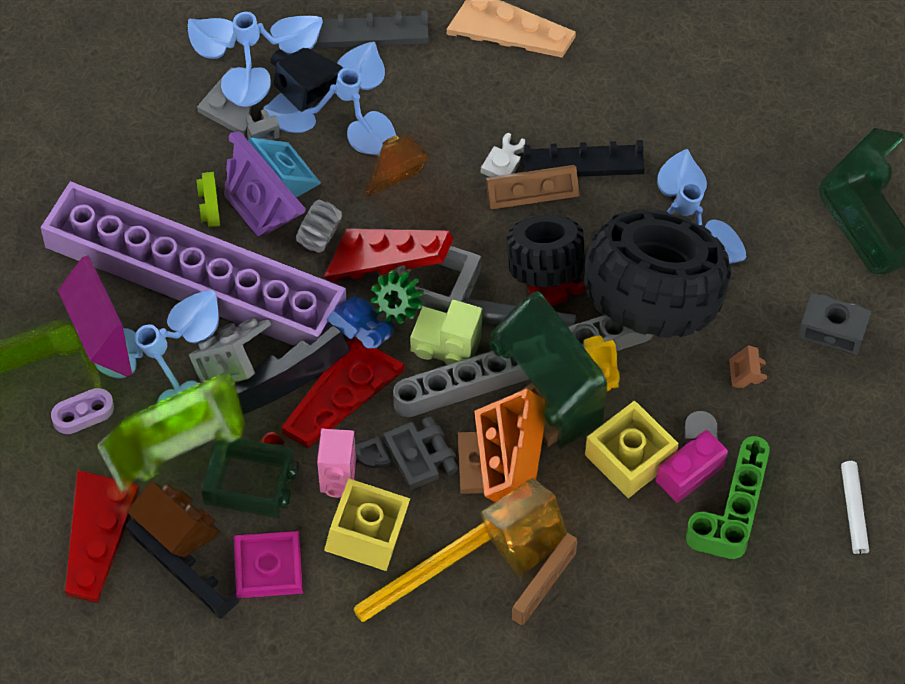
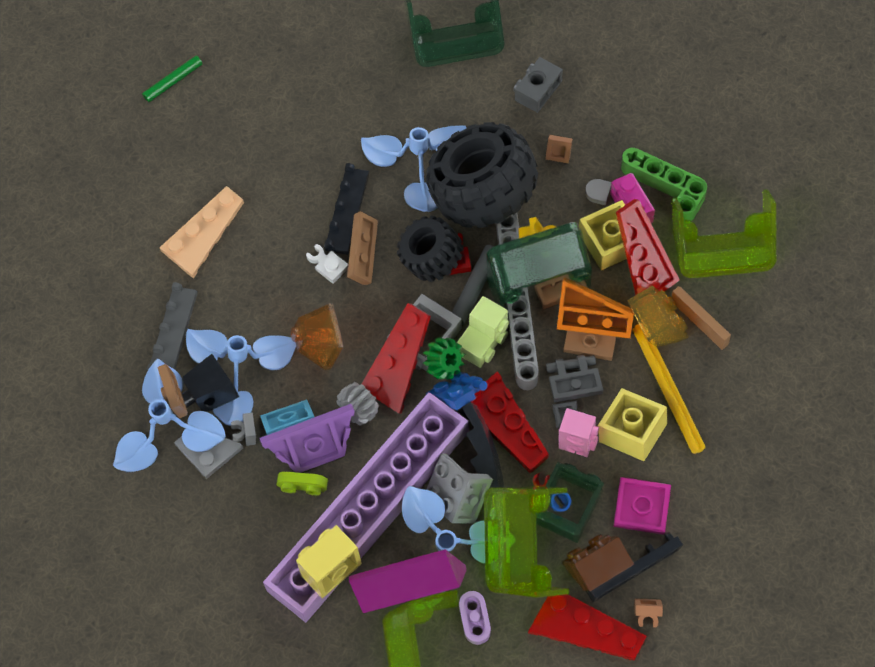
camera: 70 degrees left, 5 degrees up
(94, 225) = (328, 561): none -> light yellow brick
(129, 591) = (648, 608): none -> nougat tile
(231, 454) = (563, 498): none -> blue hinge
(280, 37) = (171, 391): none -> medium nougat plate
(605, 486) = (643, 250): none -> wing
(651, 587) = (729, 252): none -> clear neon green windscreen
(855, 507) = (683, 114): white piece -> none

